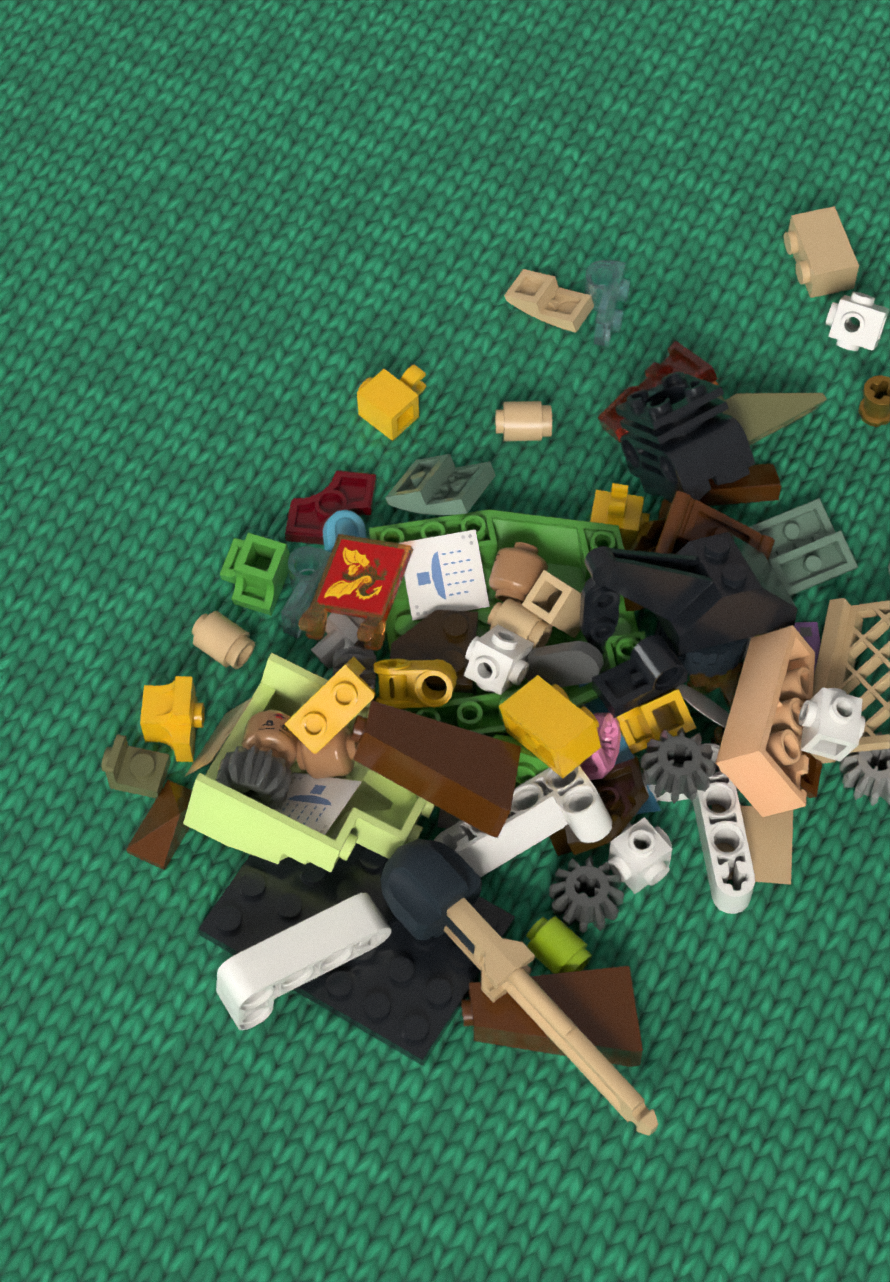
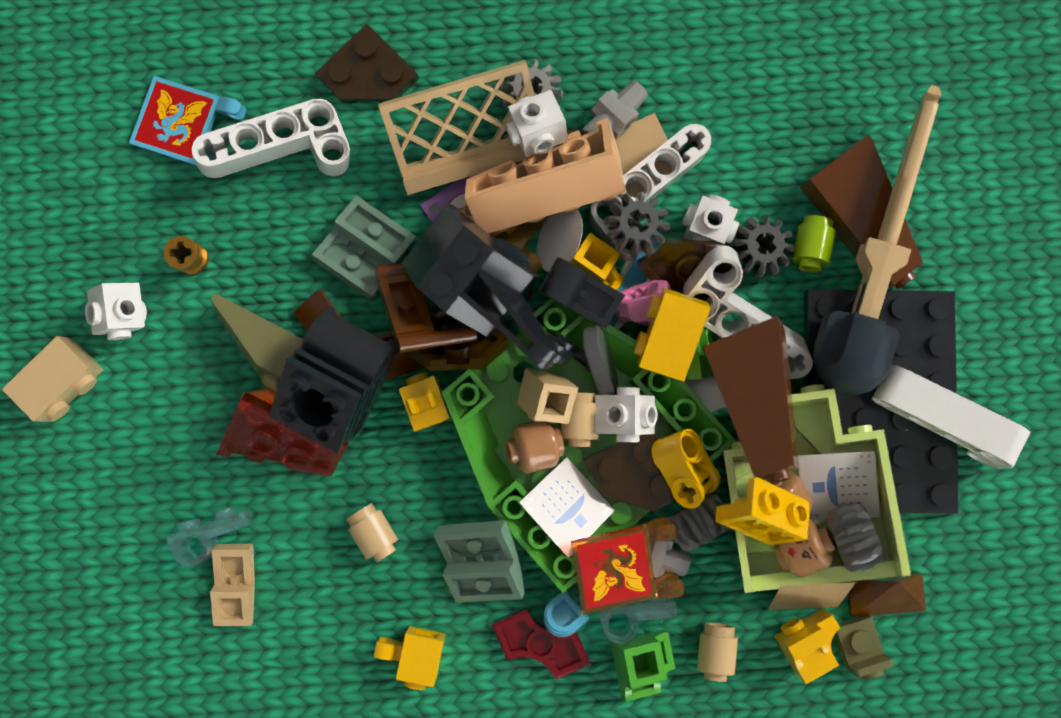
camera: 125 degrees left, 25 degrees up
(812, 836) = (619, 108): none -> light grey axle

